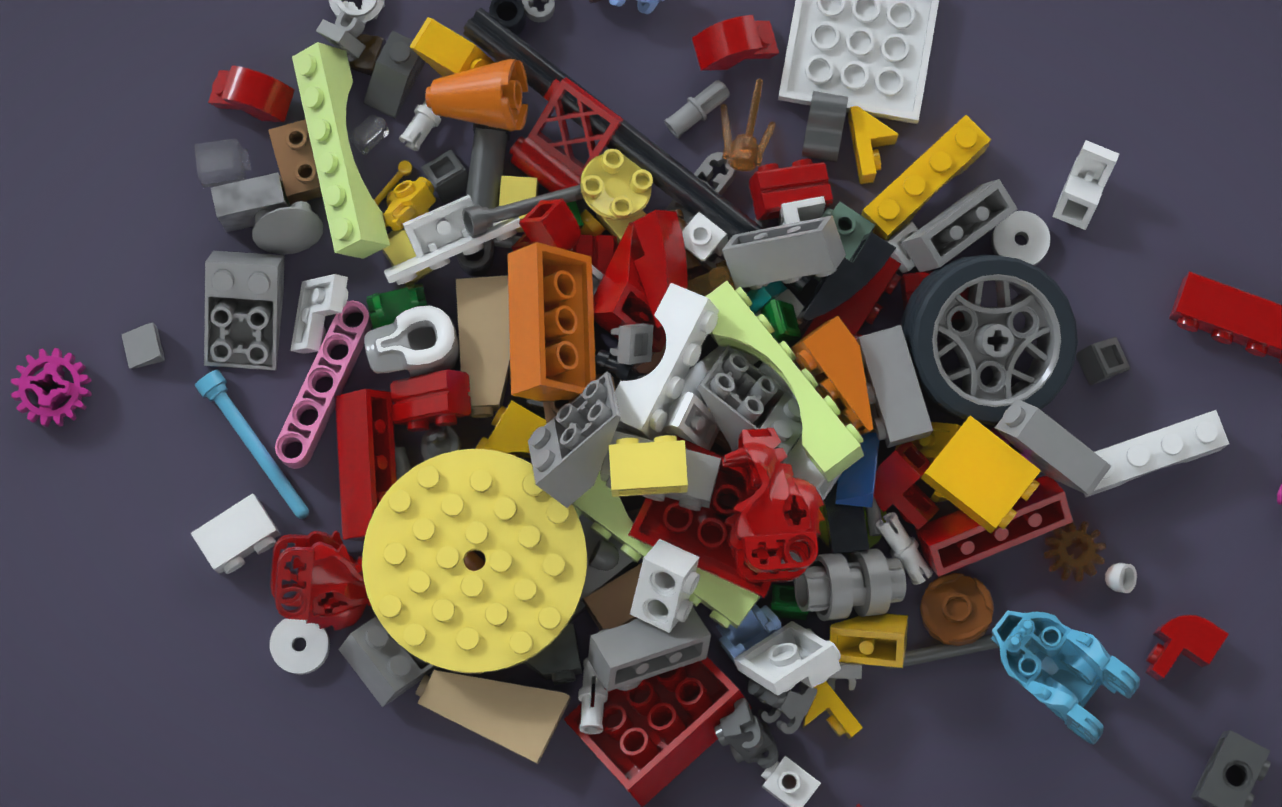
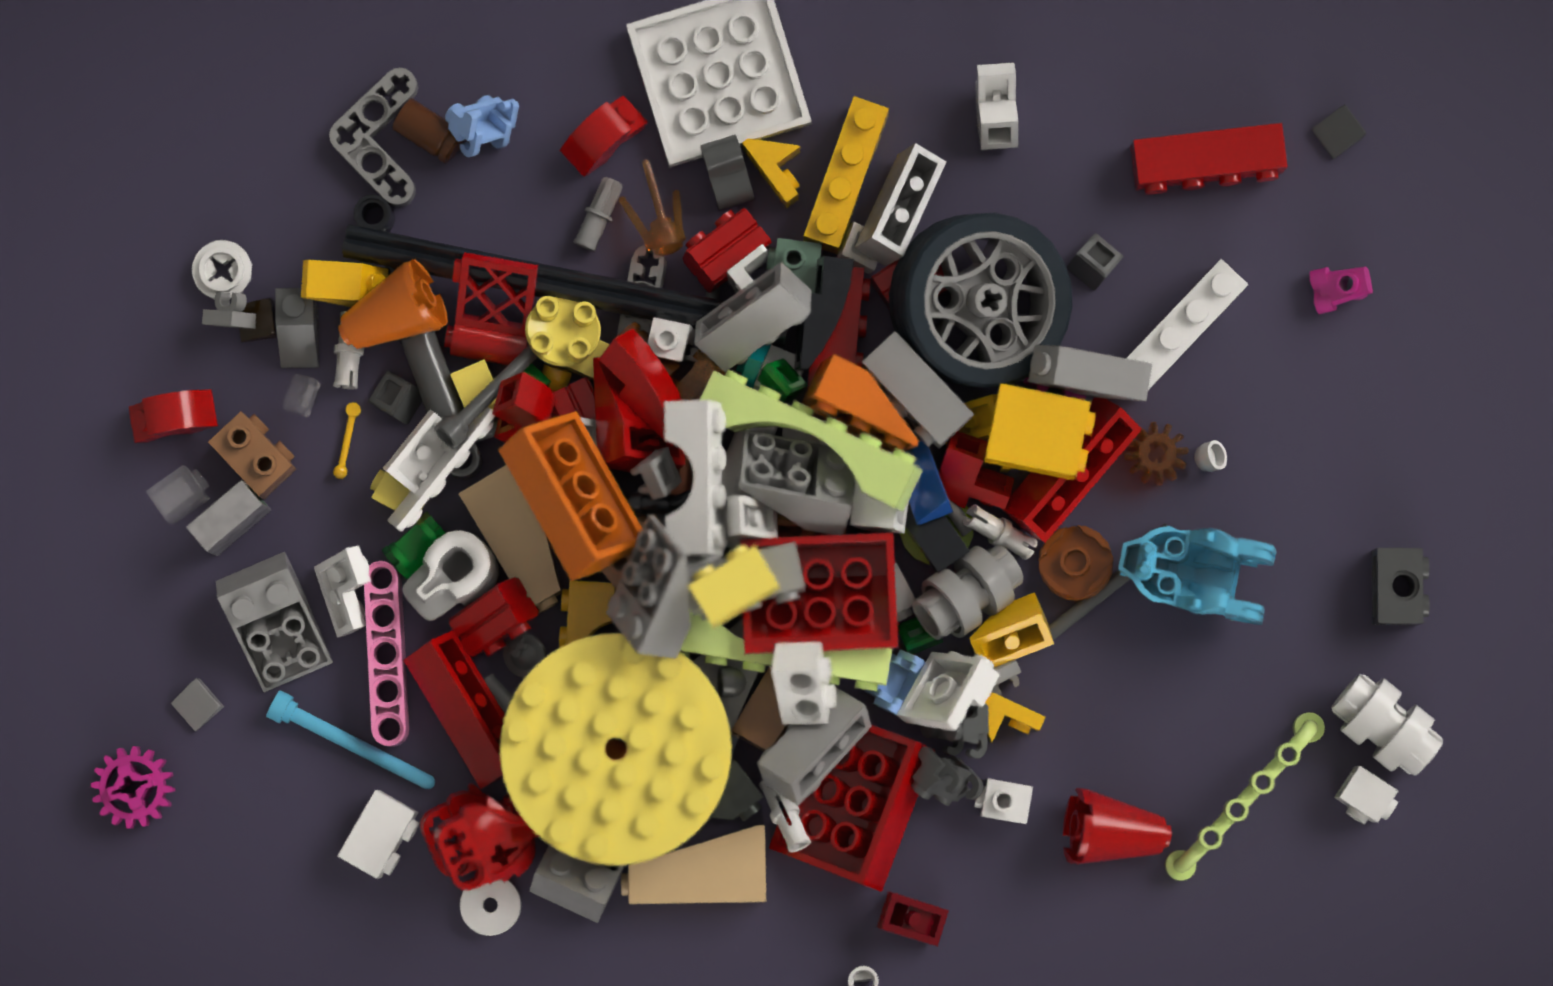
camera: 25 degrees left, 5 degrees up
(287, 229) = (275, 526): light grey dish -> none
(351, 212) = (328, 480): yellowish green arch -> none
(408, 201) = (373, 444): yellow piece -> none
(760, 520) = (862, 584): red animal -> none
(1023, 224) = (968, 202): white piece -> none
(1186, 635) = (1297, 478): red brick -> none

